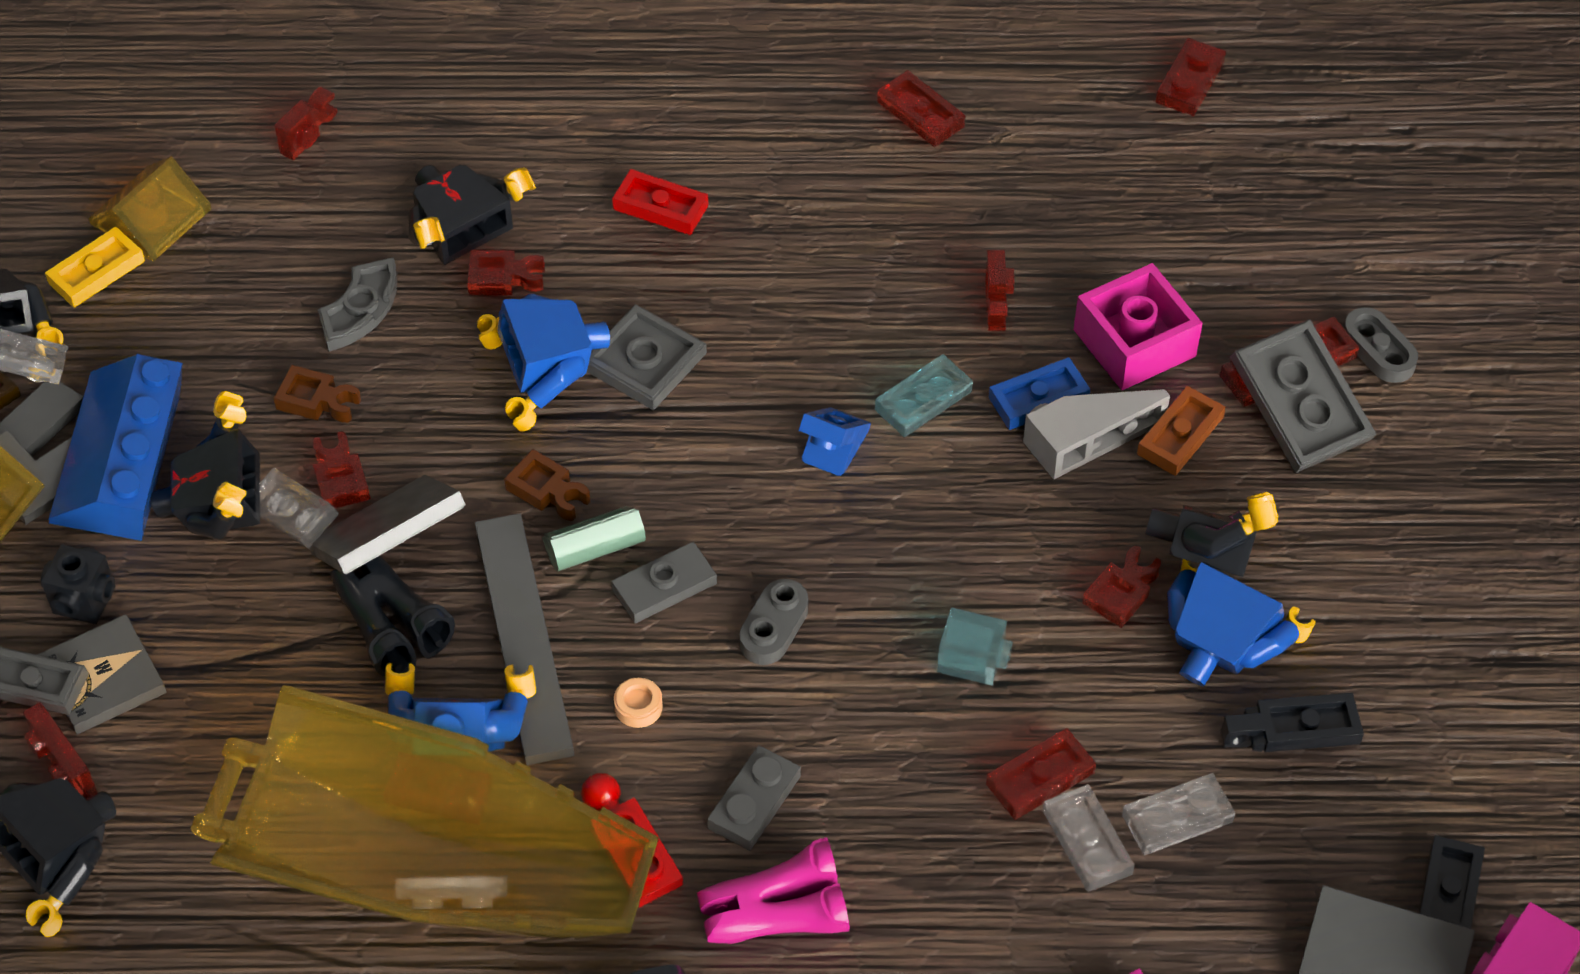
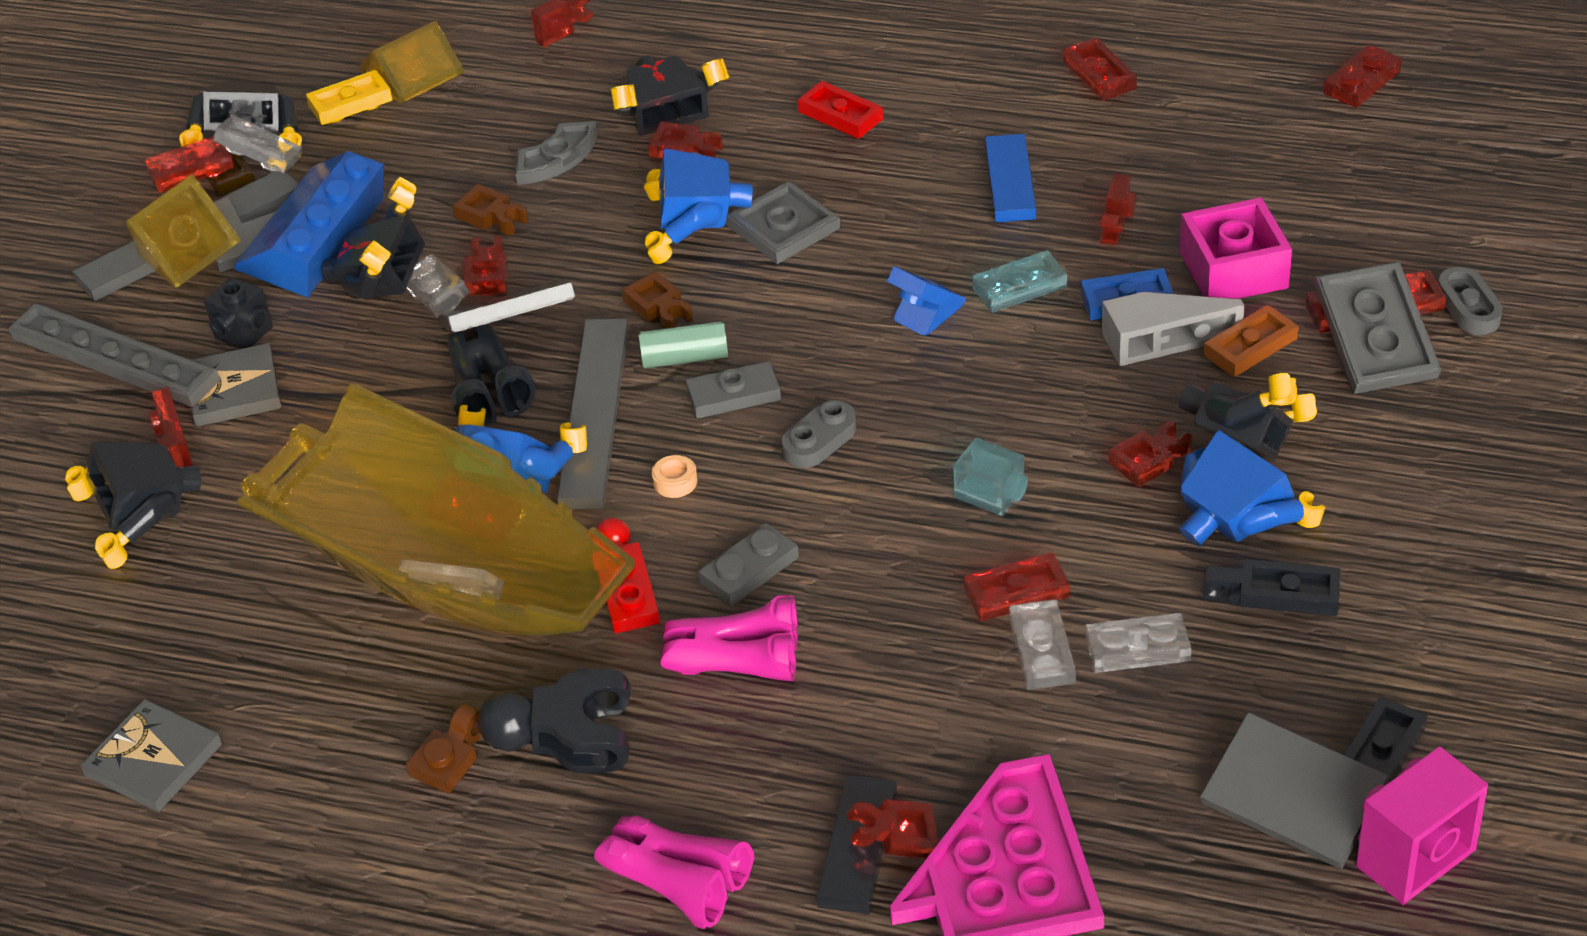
camera: 20 degrees right, 10 degrees down
(869, 262) = (1010, 178): none -> blue tile

